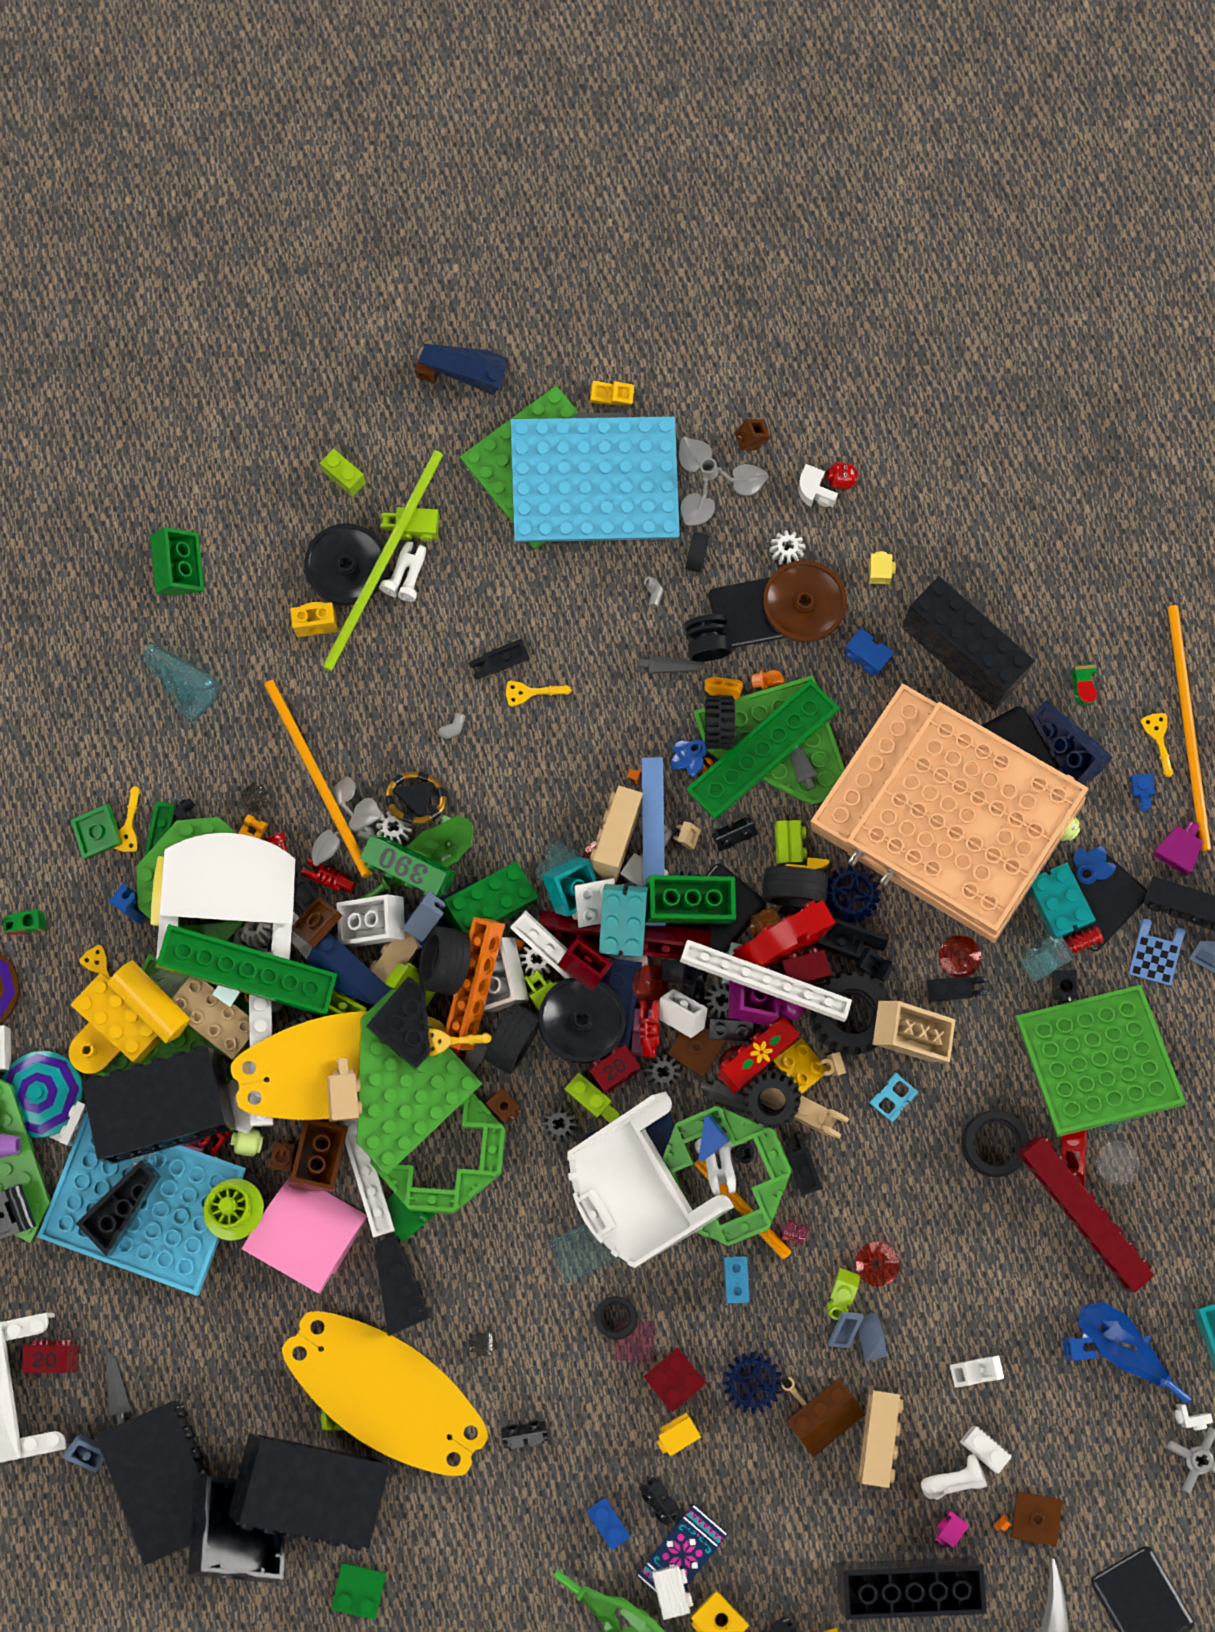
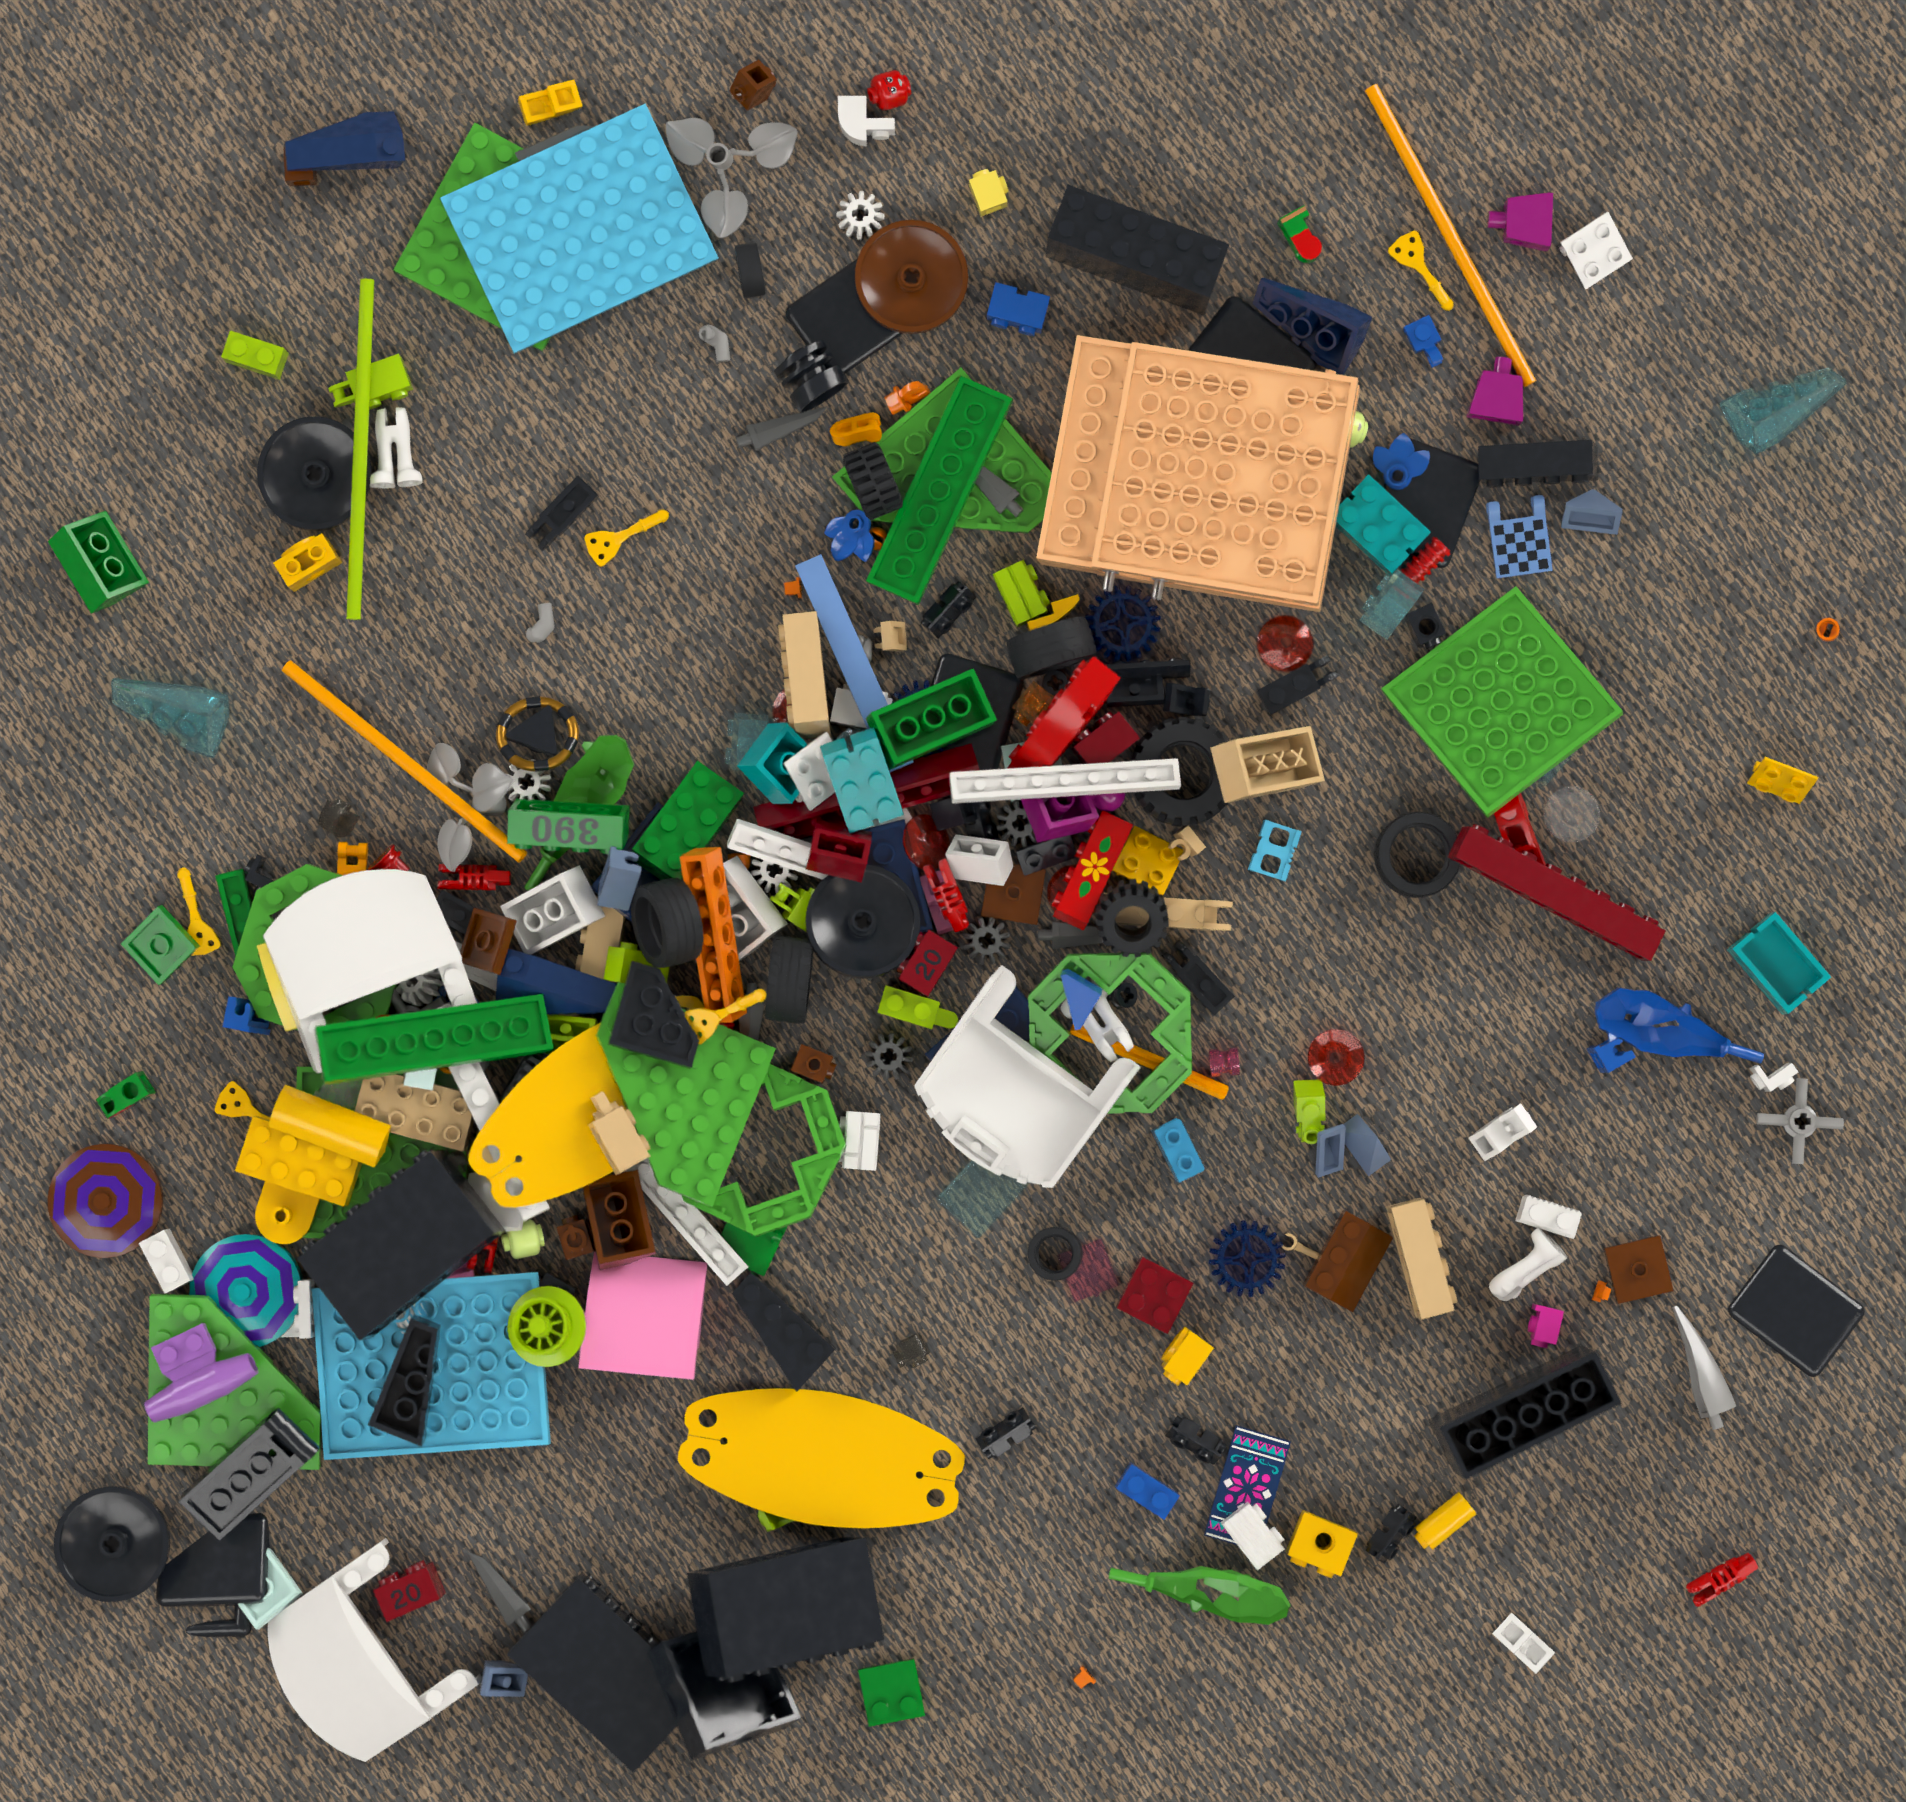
camera: 30 degrees left, 10 degrees up
(514, 1175) = (861, 1140): none -> white brick

